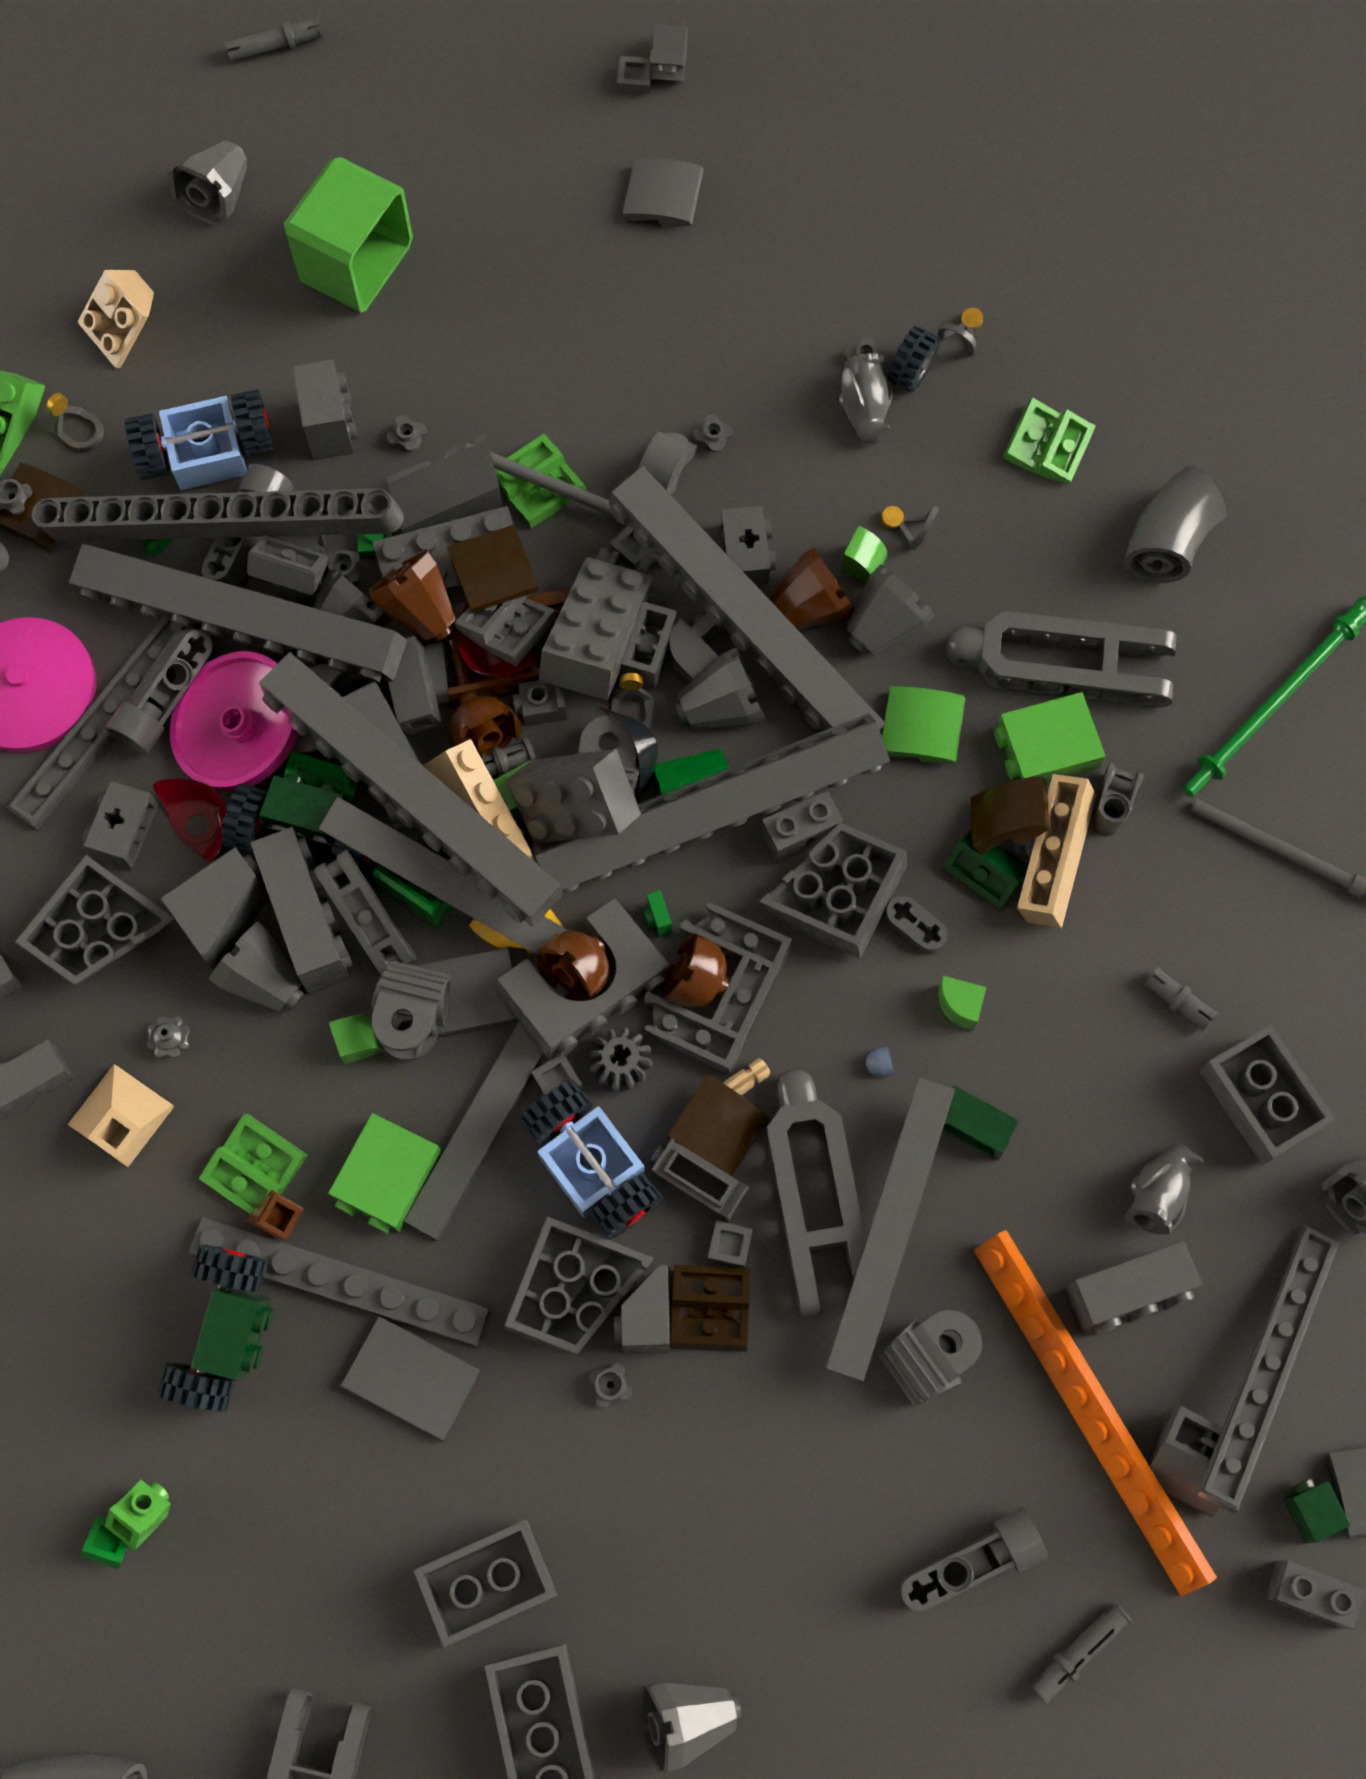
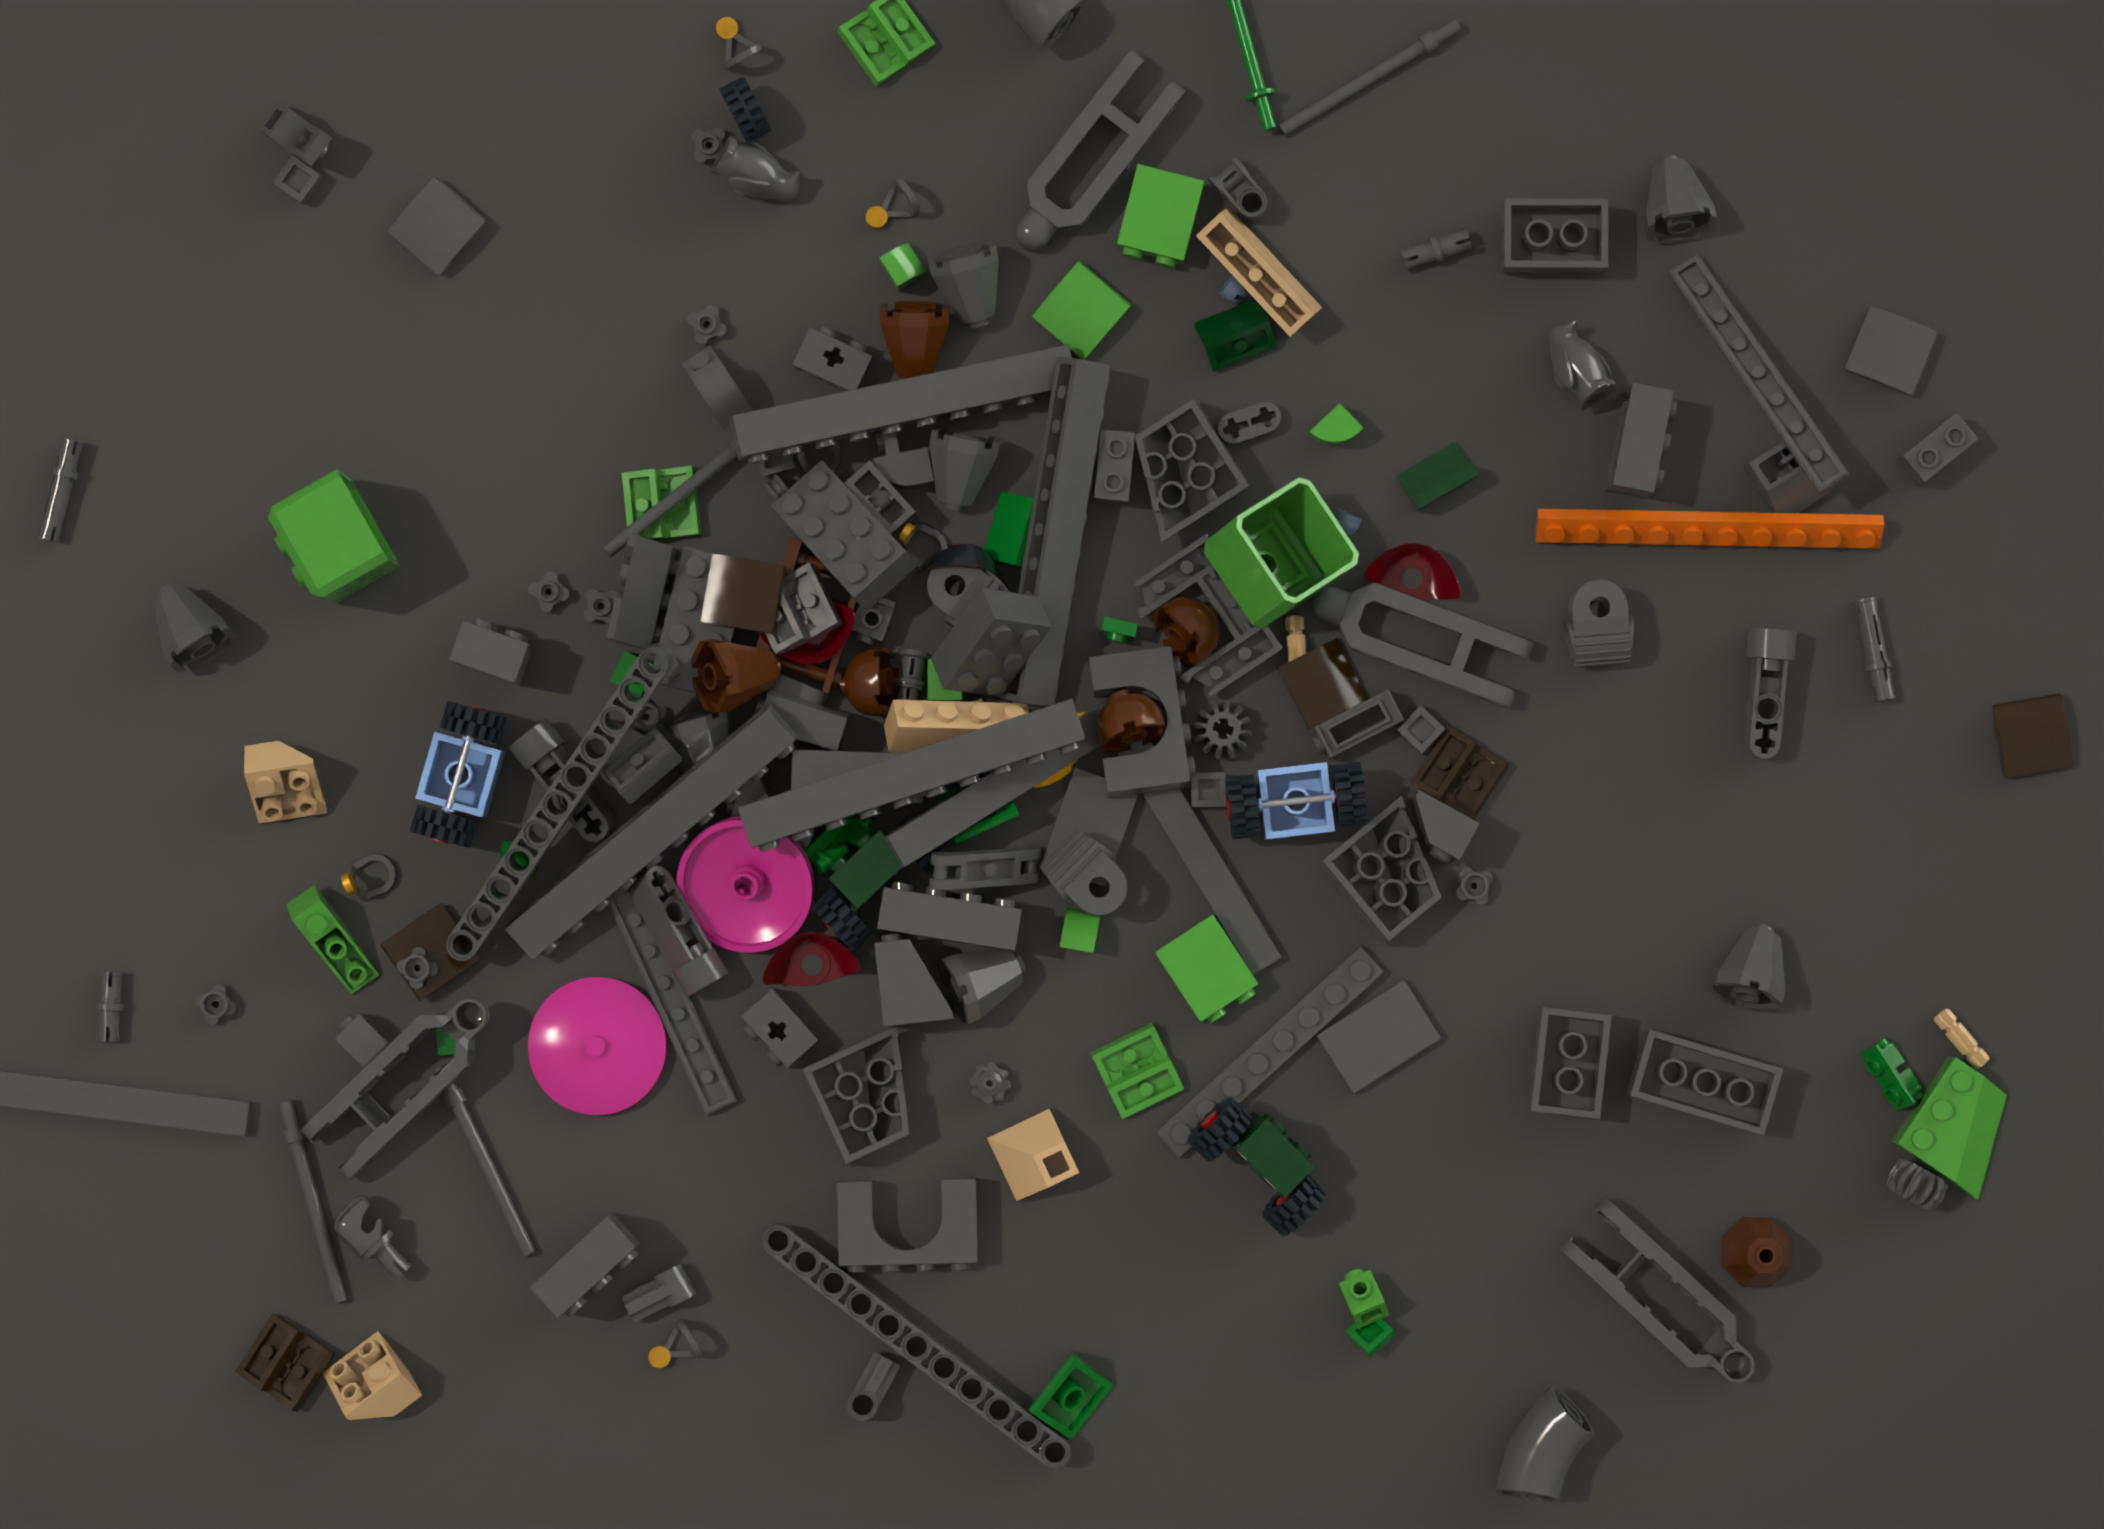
camera: 60 degrees left, 15 degrees up
(275, 1215) = (1192, 1073): reddish brown slope -> none
(839, 999) = (1296, 539): none -> bright green plate
(872, 1127) = (1438, 577): none -> dark red piece
(890, 1230) = (1486, 598): dark grey tile -> none
(1010, 811) = (1207, 291): dark brown slope -> none
(1316, 1510) = (1879, 407): dark green brick -> none

